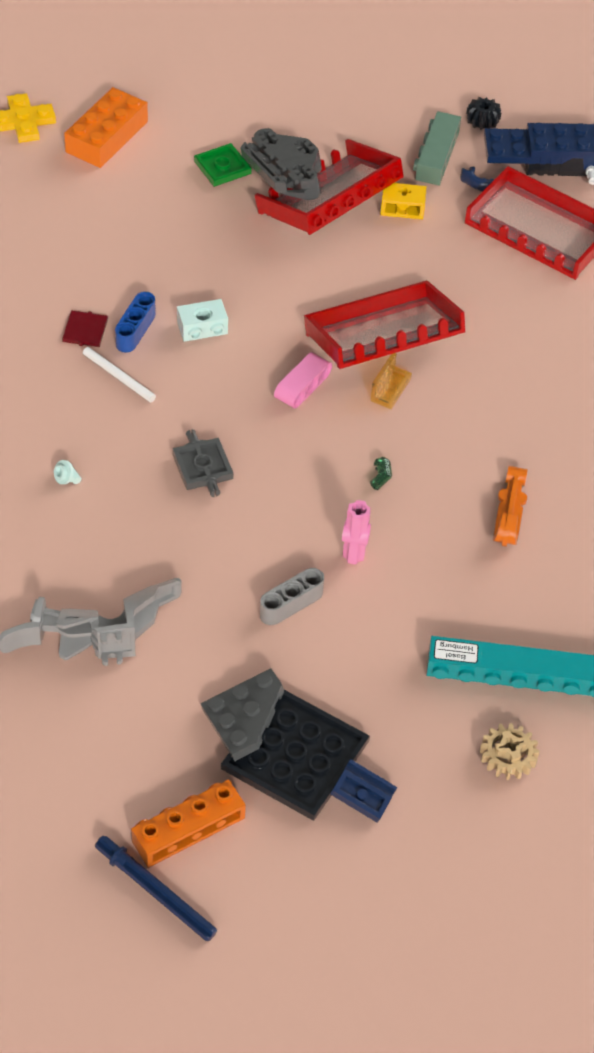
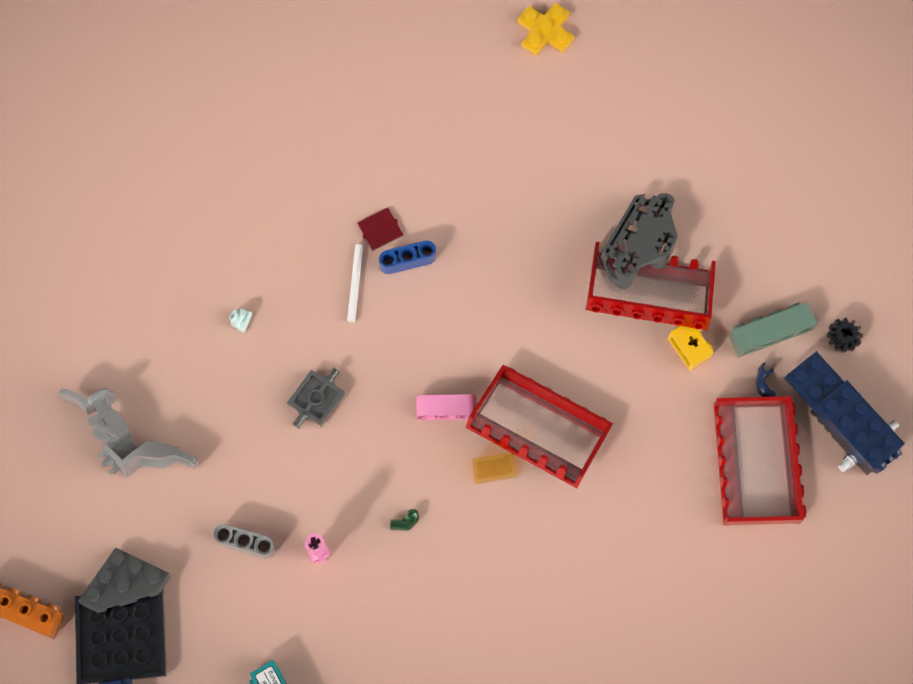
camera: 55 degrees right, 20 degrees up
(106, 127) = (581, 90): orange brick -> none
(202, 320) = (441, 288): light aqua brick -> none
(222, 164) = (615, 193): green plate -> none
(510, 507) = (440, 634): orange piece -> none

